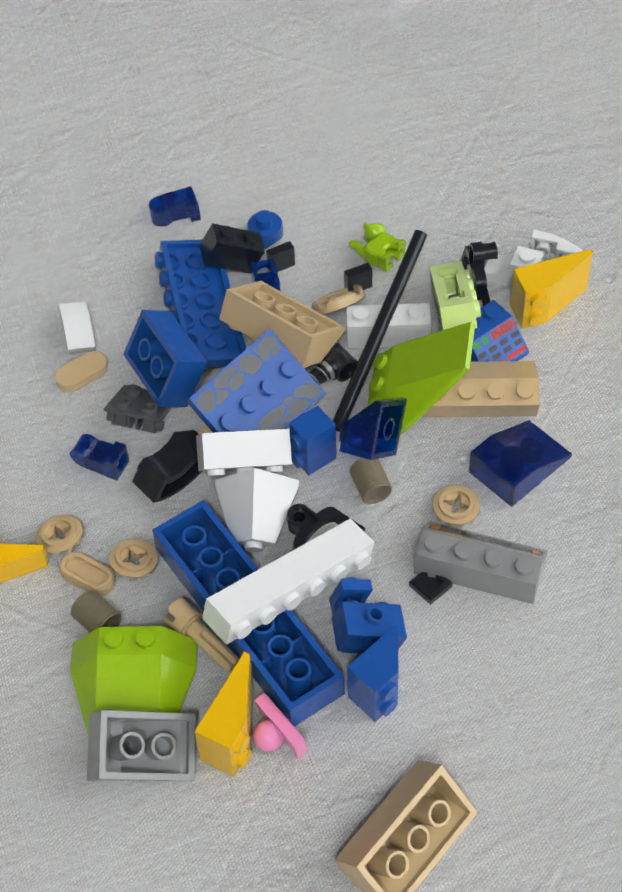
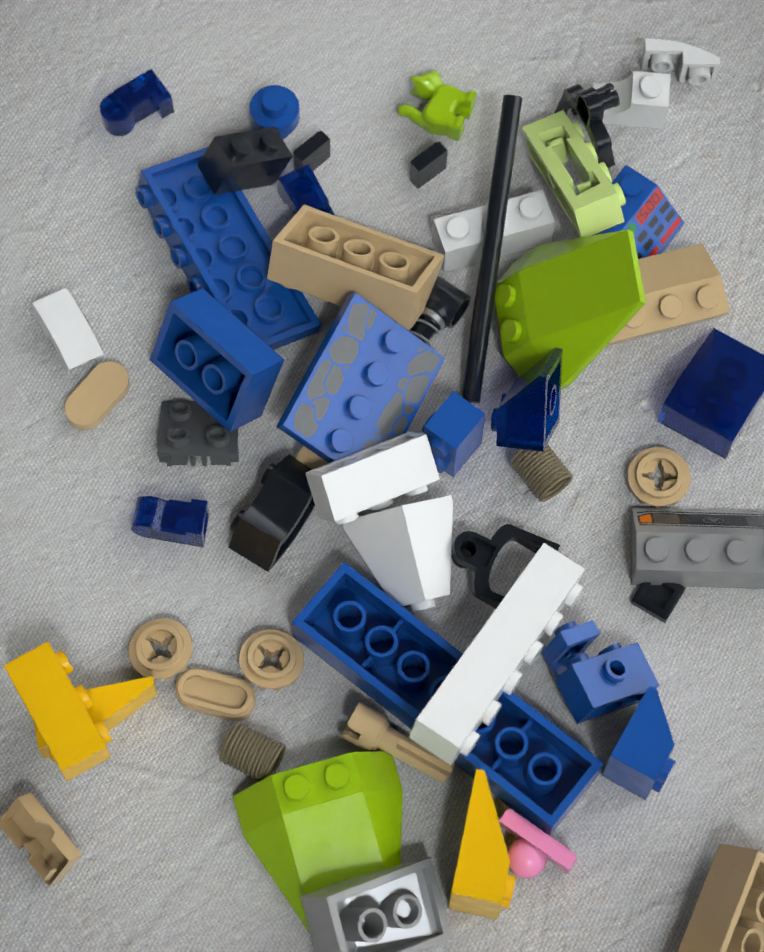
camera: 20 degrees left, 15 degrees up
(338, 299) = (415, 208): tan tile -> none
(548, 287) = (682, 131): yellow slope -> none

